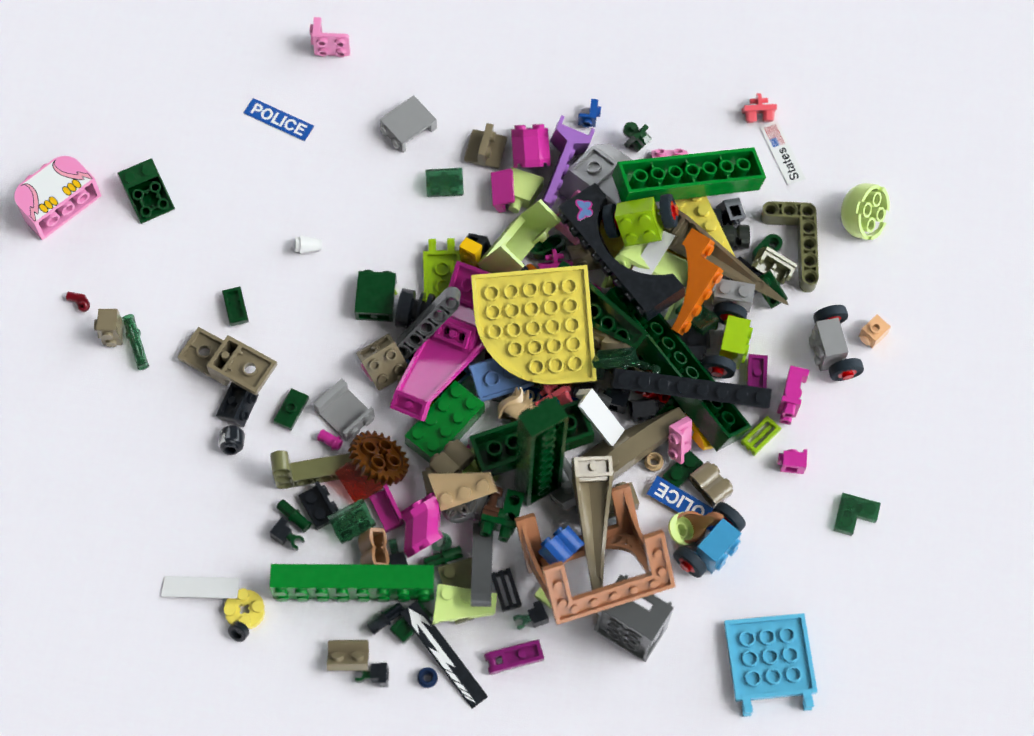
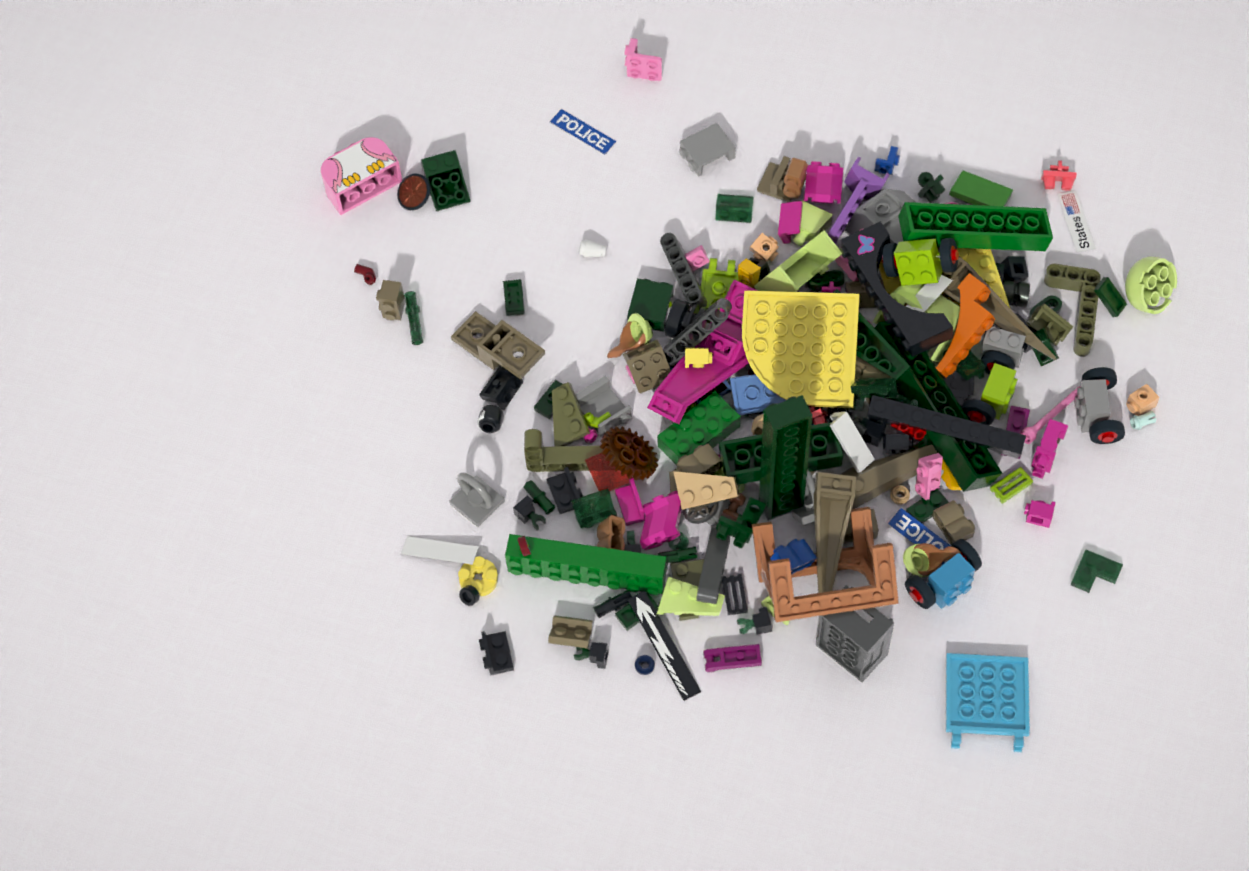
camera: 15 degrees right, 5 degrees down
(114, 206) = (413, 191): none -> copper wheel
(229, 527) = (475, 499): none -> light grey tile
(276, 687) = (497, 653): none -> black bracket
(288, 576) = (523, 544): none -> dark red tile
(310, 427) = (567, 416): none -> olive wing
(338, 428) = (593, 421): none -> lime arm
(363, 332) = (634, 335): none -> piece
(398, 251) = (673, 250): none -> dark grey beam
(415, 240) = (697, 257): none -> bright pink bracket
(433, 348) = (697, 357): none -> light yellow brick
(477, 227) = (764, 242): none -> light nougat brick
(501, 145) = (795, 178): none -> medium nougat brick
(685, 134) = (980, 190): none -> bright green tile
(772, 380) = (1031, 432): none -> bright pink piece
(828, 228) = (1110, 297): none -> dark green plate
(873, 353) = (1138, 421): none -> light aqua pin

